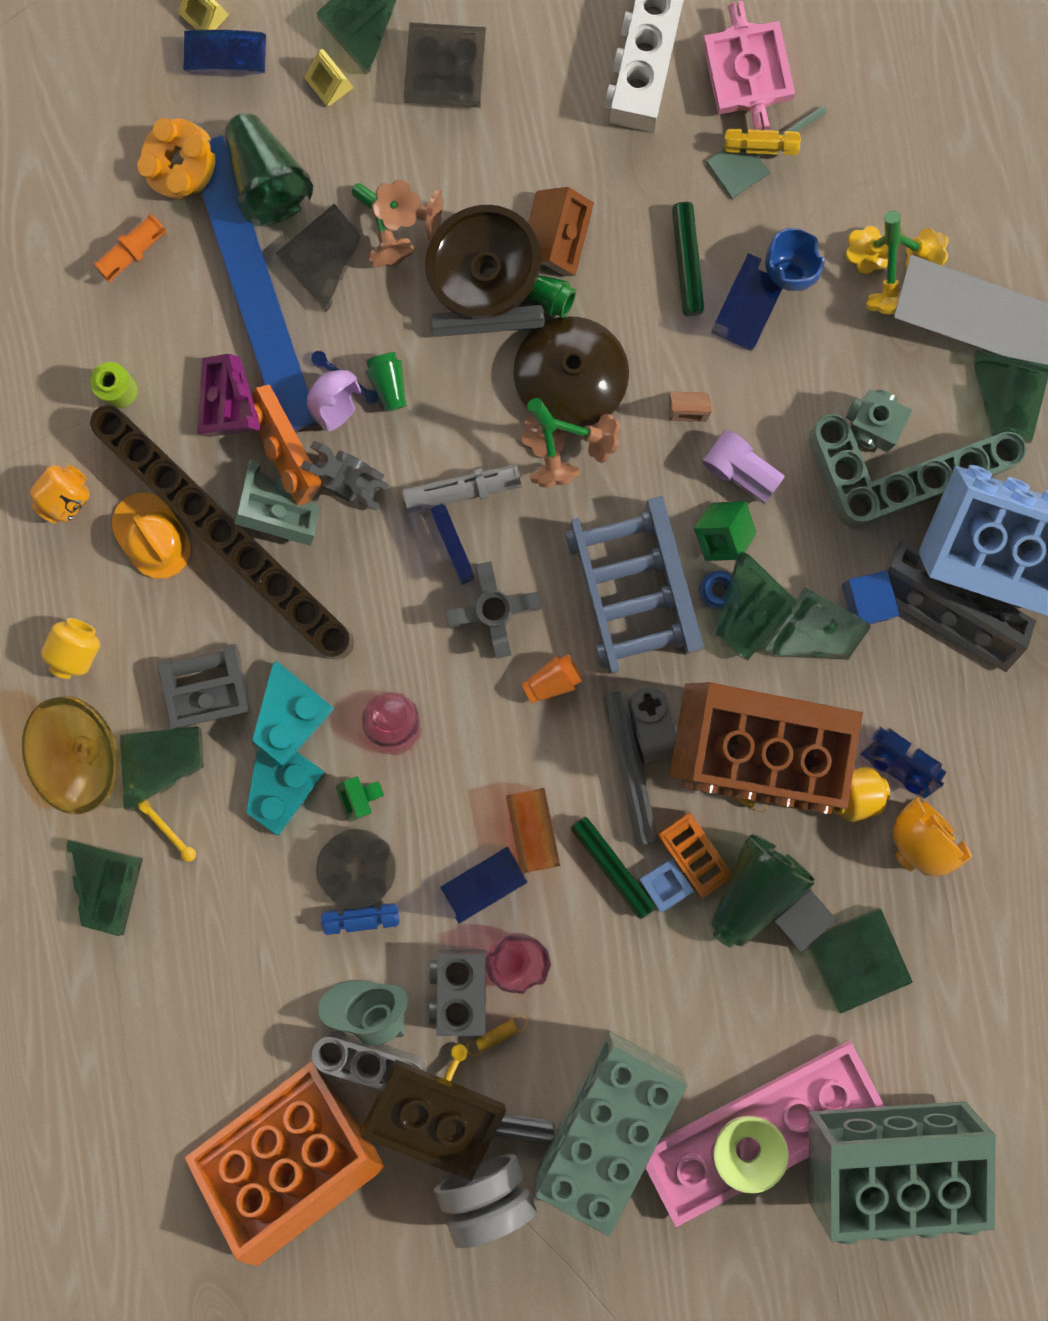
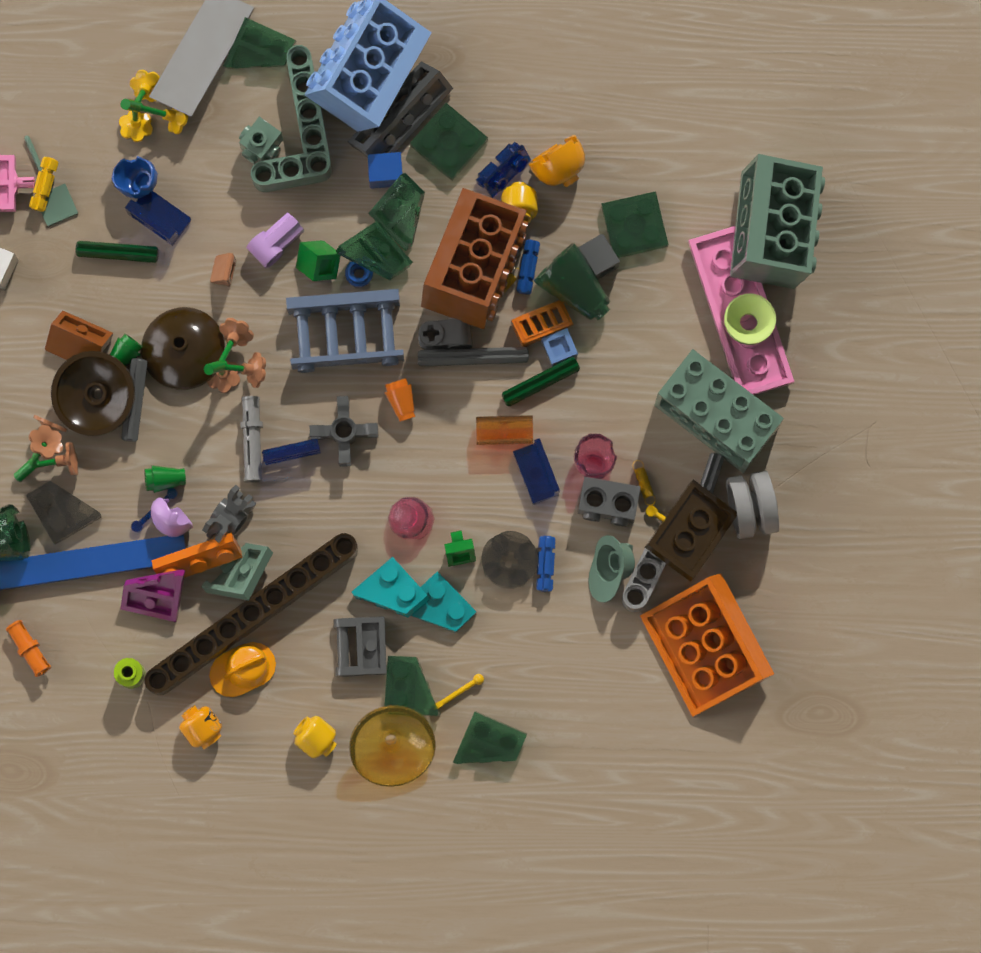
camera: 85 degrees left, 5 degrees down
(771, 821) = (528, 267): none -> blue axle
(928, 680) = (449, 141): none -> clear green plate

